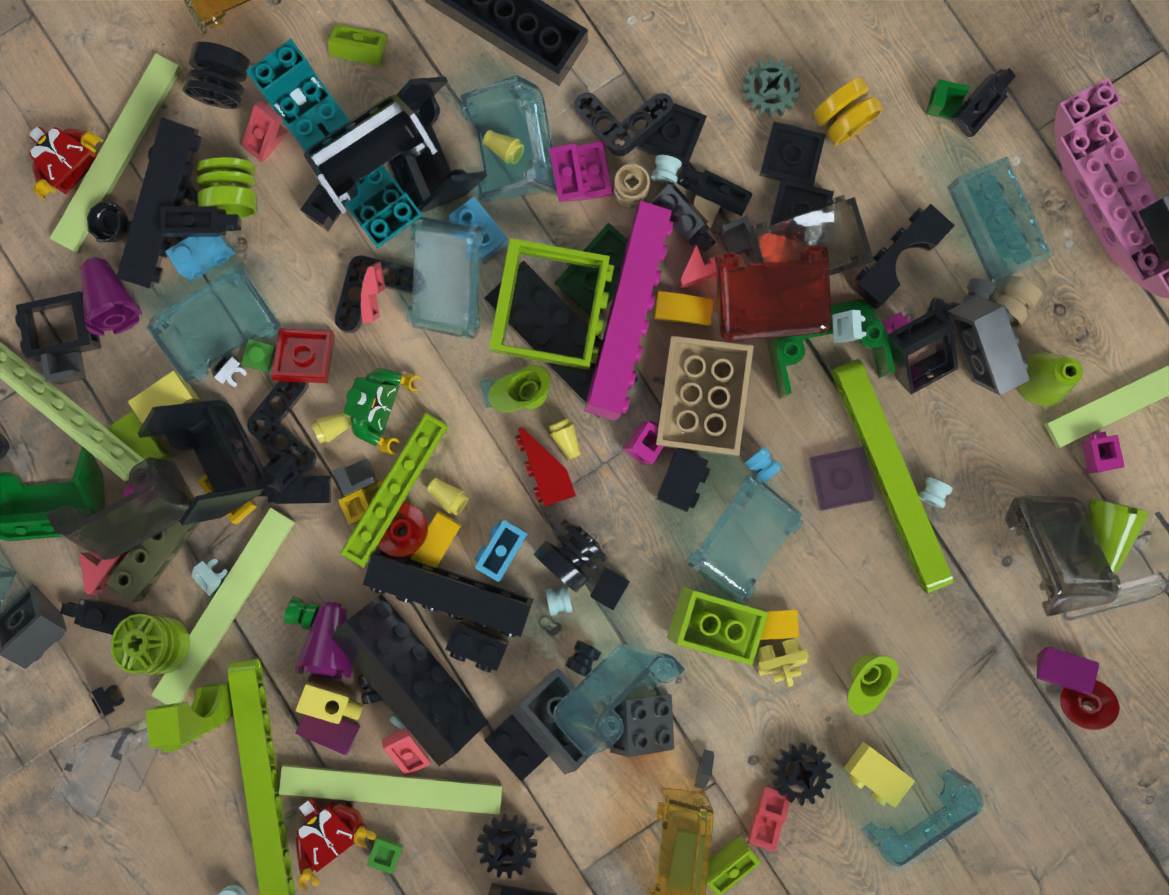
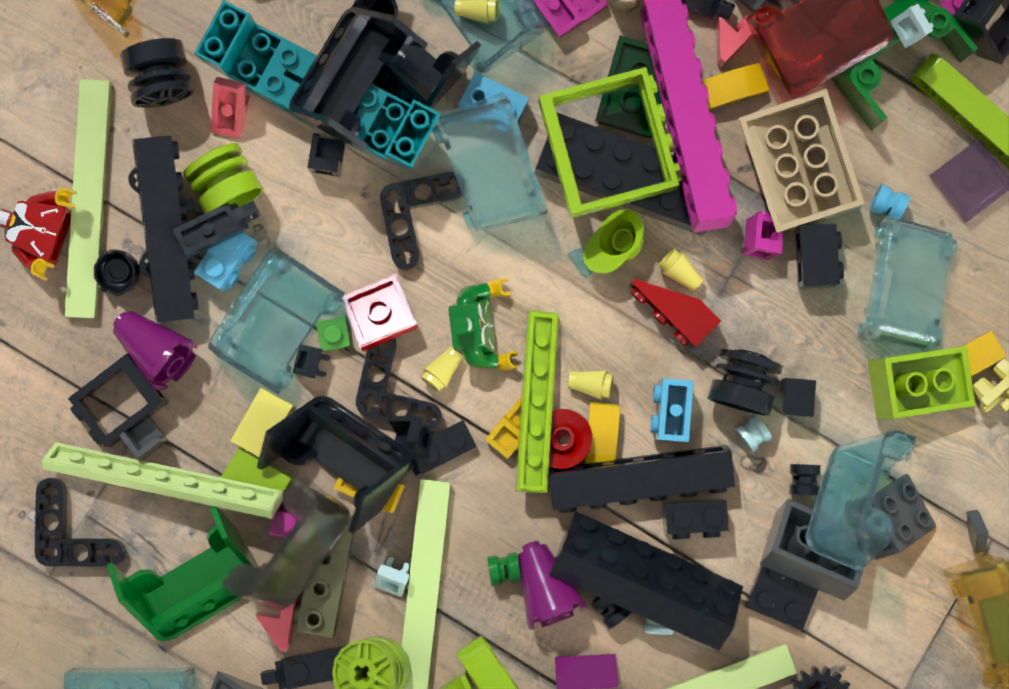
camera: 25 degrees left, 0 degrees up
(316, 700) = (560, 642): light yellow torso -> none
(355, 477) = (491, 408): dark grey panel -> none
(372, 285) = (418, 209): coral slope -> none
(406, 751) = (675, 654): coral slope -> none

